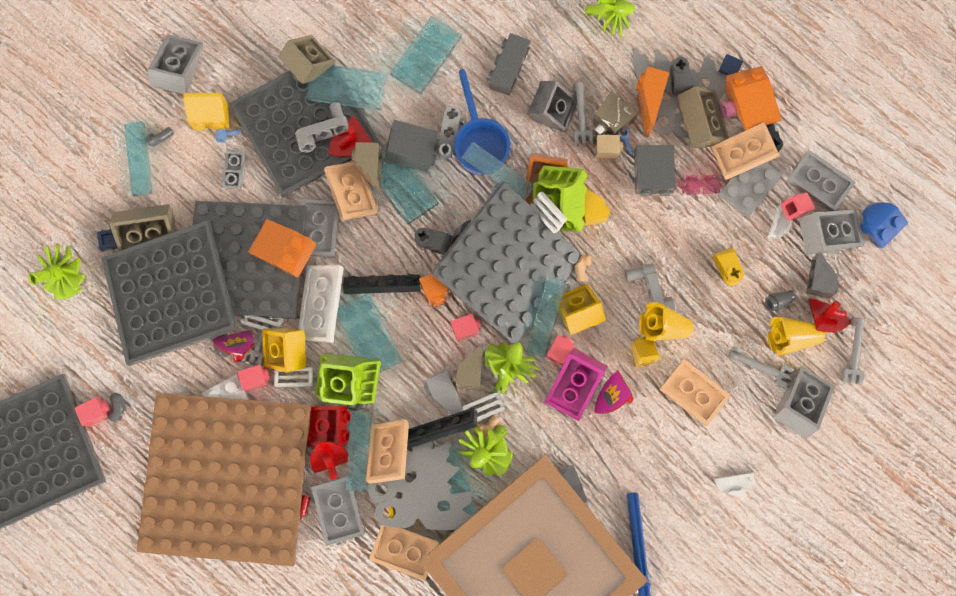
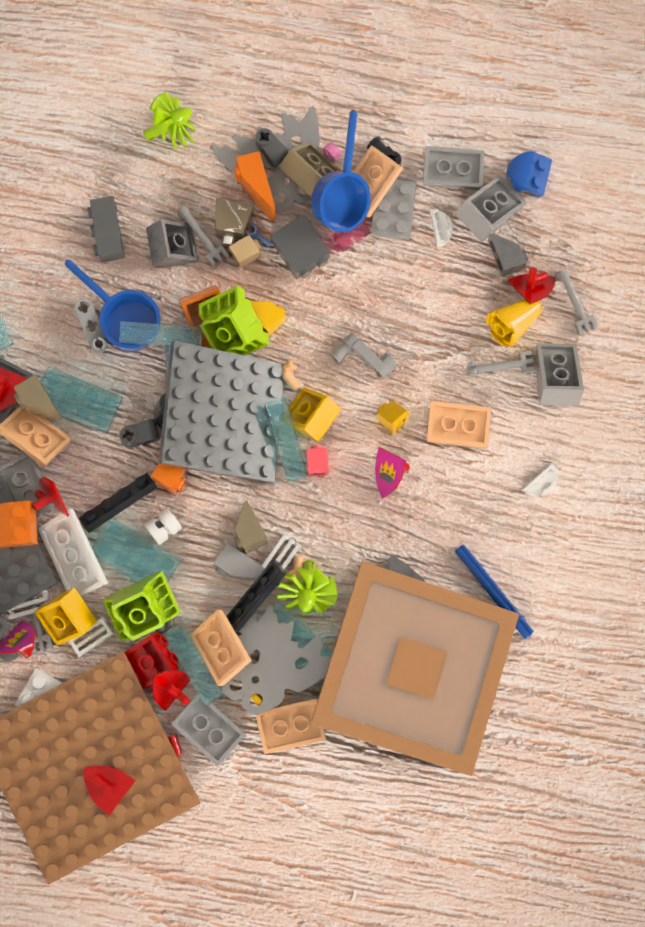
camera: 35 degrees left, 0 degrees up
(229, 504) = (106, 786): none -> red shield
(253, 378) = (54, 660): coral brick -> none
(326, 246) = (49, 494): none -> red shield
(411, 146) = (64, 359): dark grey brick -> none
(411, 324) = (165, 519): none -> white wheel
(426, 55) = (23, 267): clear light blue plate -> none
(465, 327) = (219, 494): coral brick -> none
(507, 363) = (278, 501): lime piece -> none
(547, 214) = (229, 346): white tile -> none
(576, 384) = (350, 483): dark pink slope -> none
(664, 323) = (394, 380): yellow cone -> none
(715, 150) = (342, 197): none -> blue piece
(728, 264) = (417, 292): yellow piece -> none
(730, 65) = (309, 110): dark blue tile -> none
(752, 97) = (333, 126): orange slope -> none
(777, 301) = (482, 297): dark grey cone -> none
(797, 206) = (447, 203): coral brick -> none

